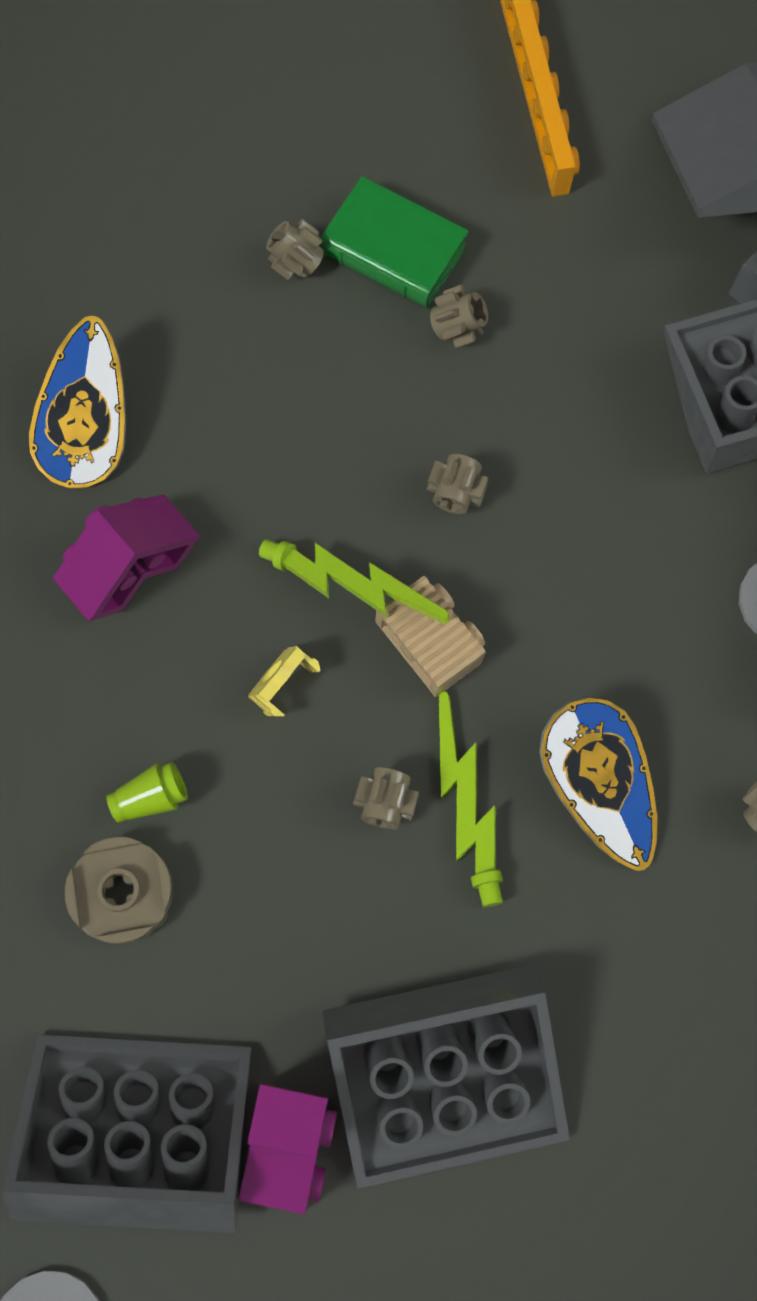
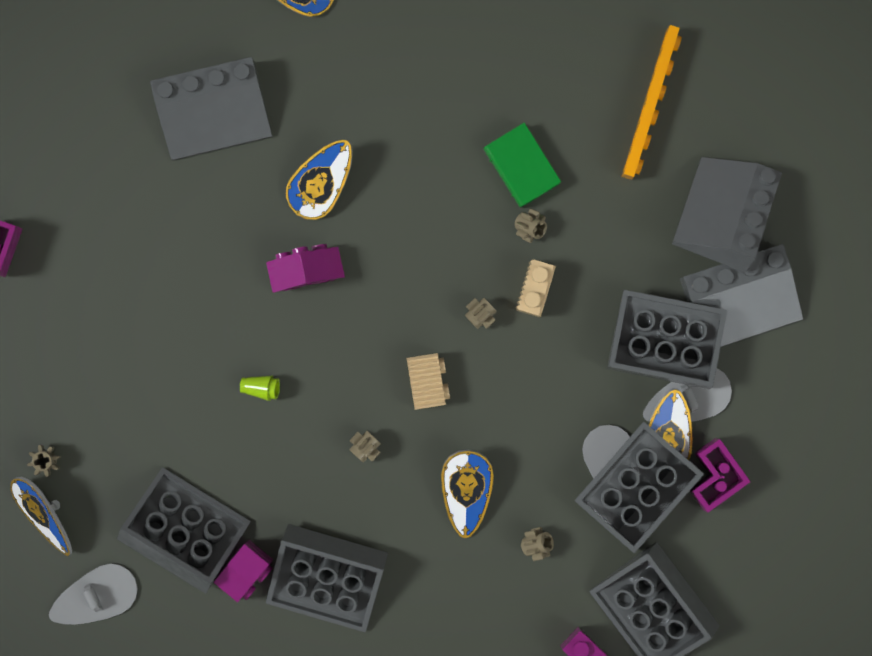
camera: 30 degrees right, 15 degrees up
(96, 872) = (220, 410): dark tan plate -> none
(278, 675) = (352, 359): light yellow piece -> none
(294, 249) = (468, 145): dark tan gear -> none
(326, 566) = (380, 305): lime piece -> none
(467, 829) = (395, 479): lime piece -> none
(522, 403) = (535, 288): none -> tan brick

